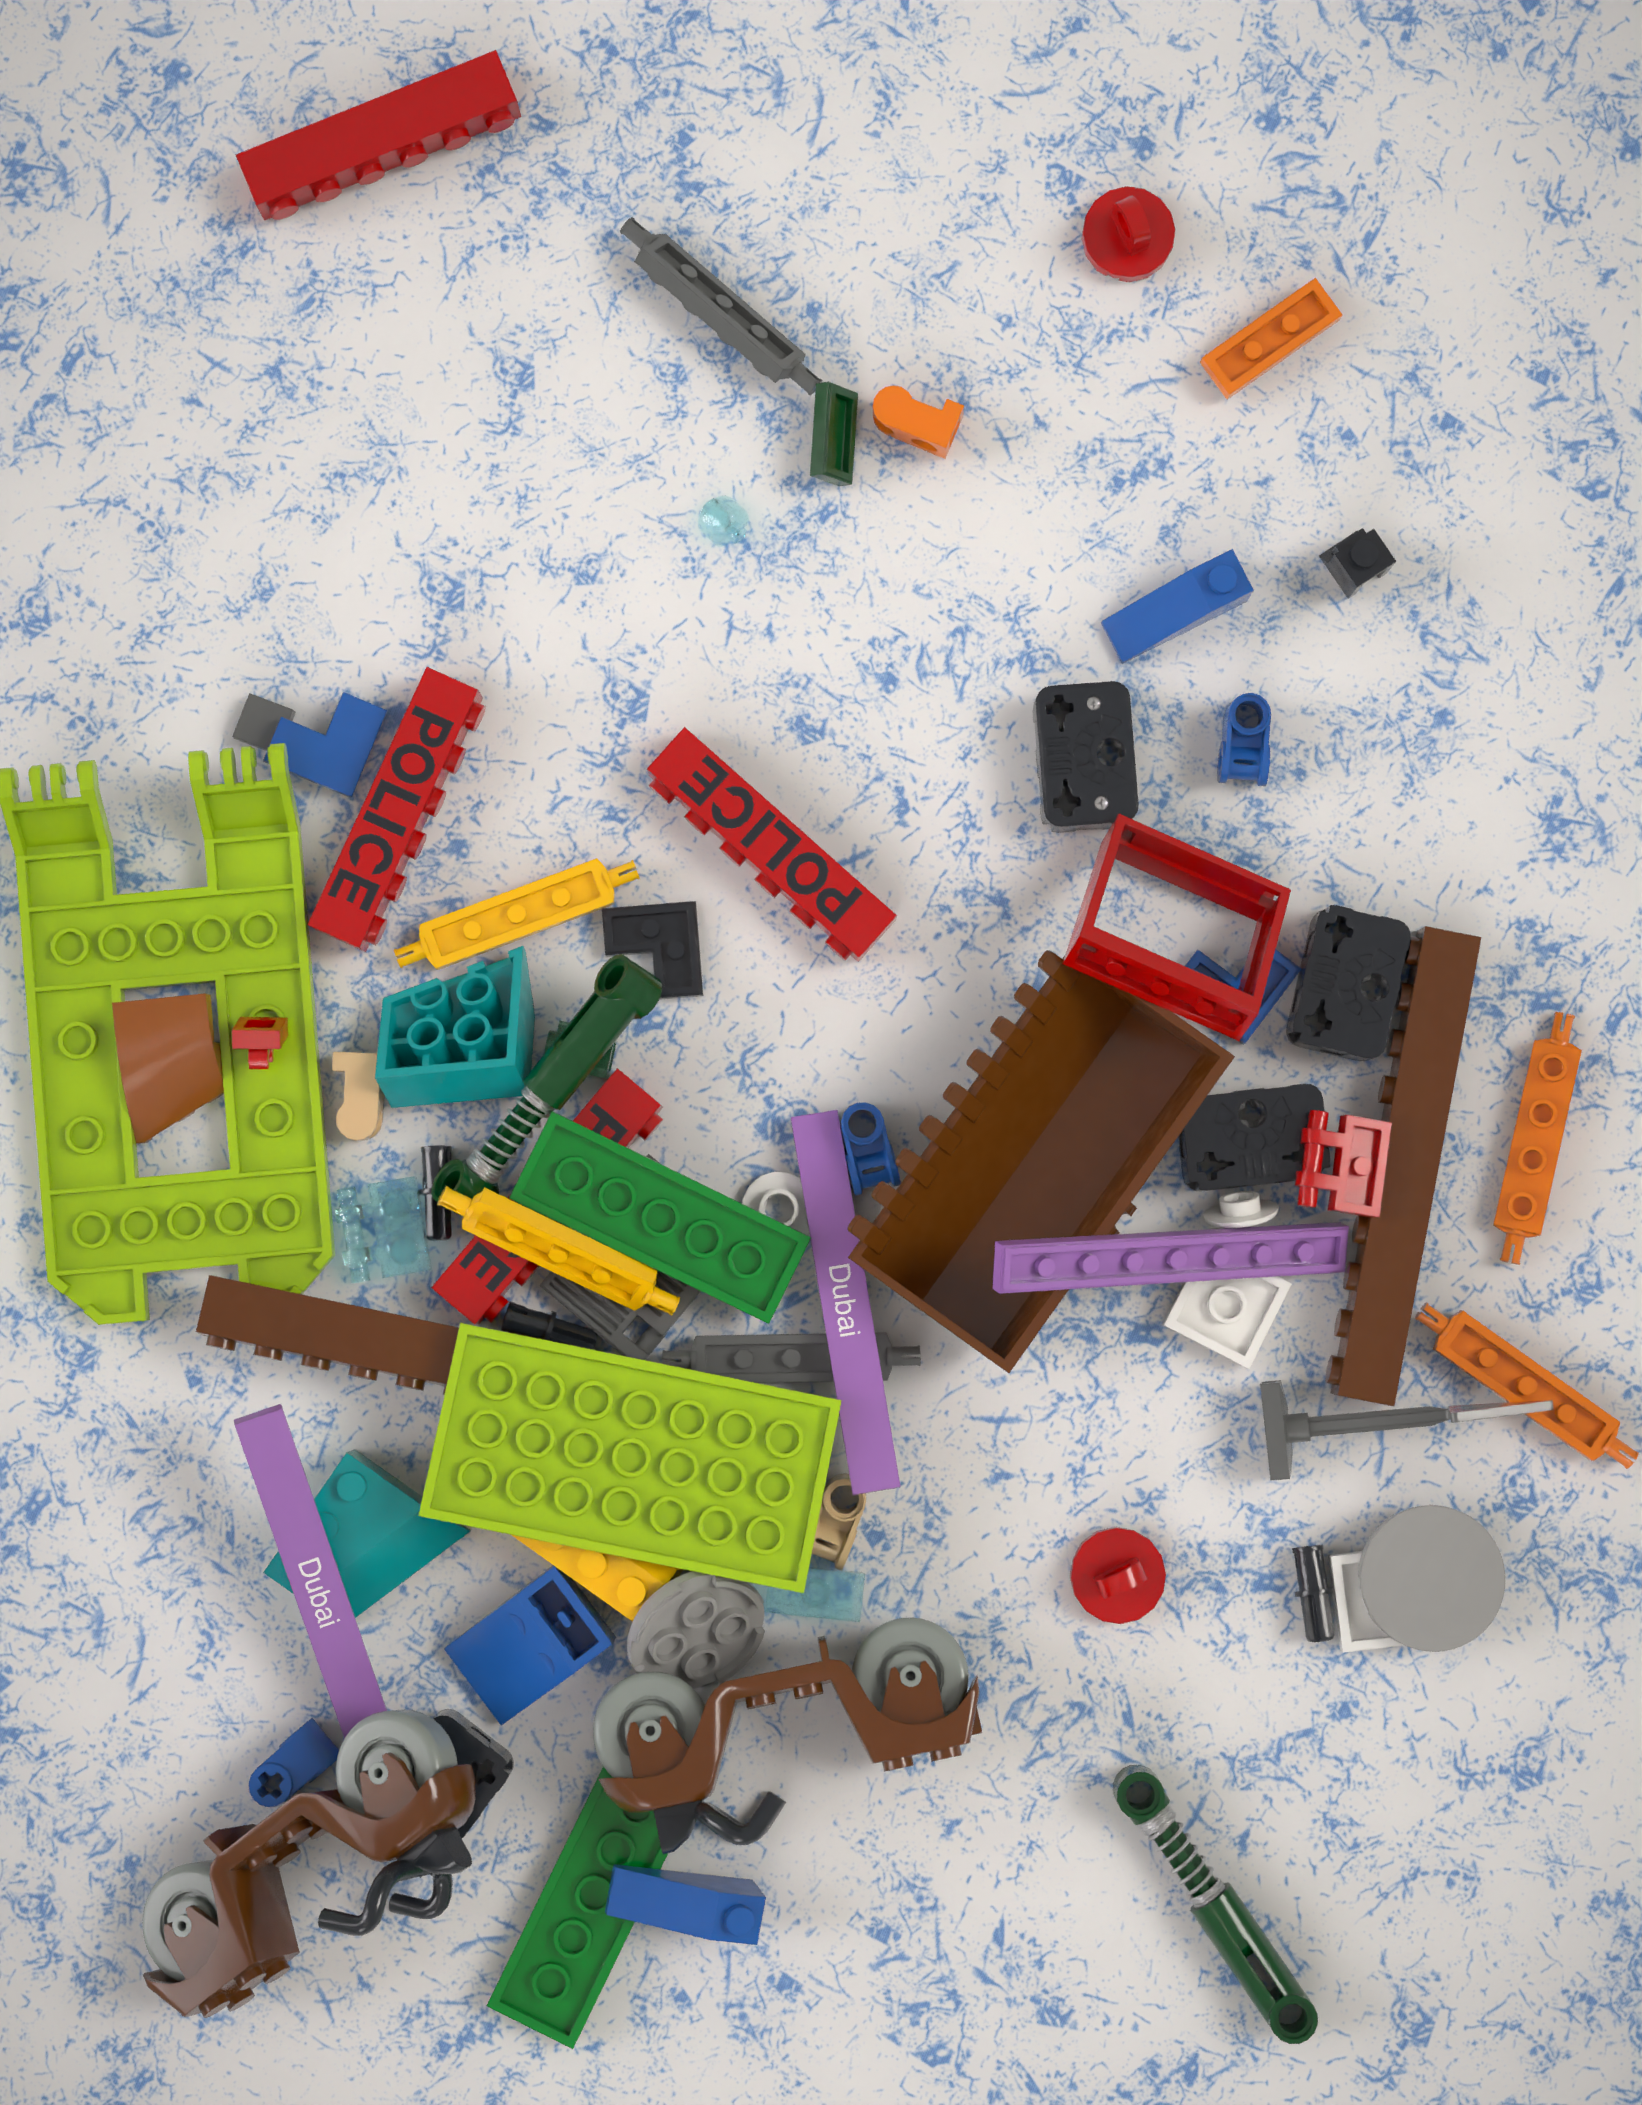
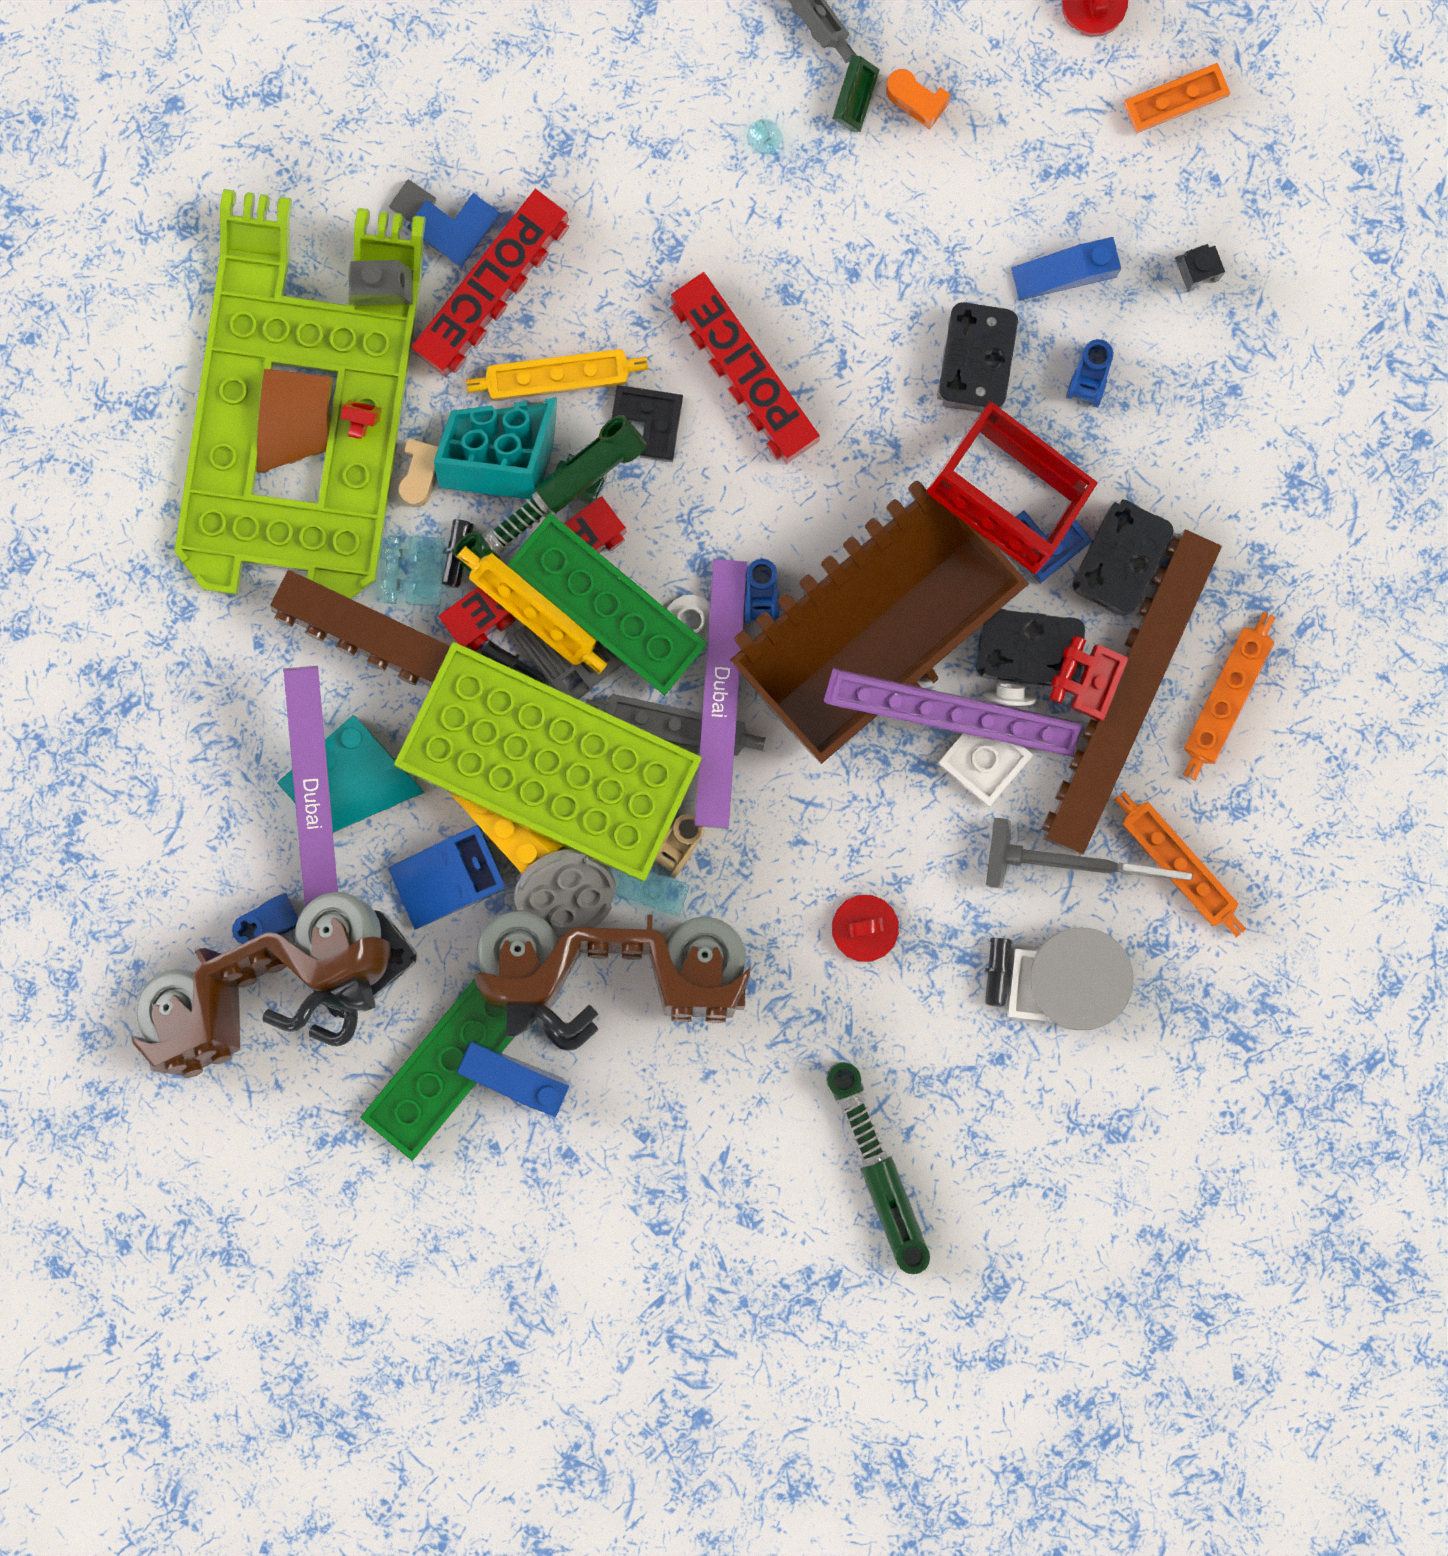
camera: 15 degrees right, 0 degrees up
(244, 847) = (380, 283): none -> dark grey torso

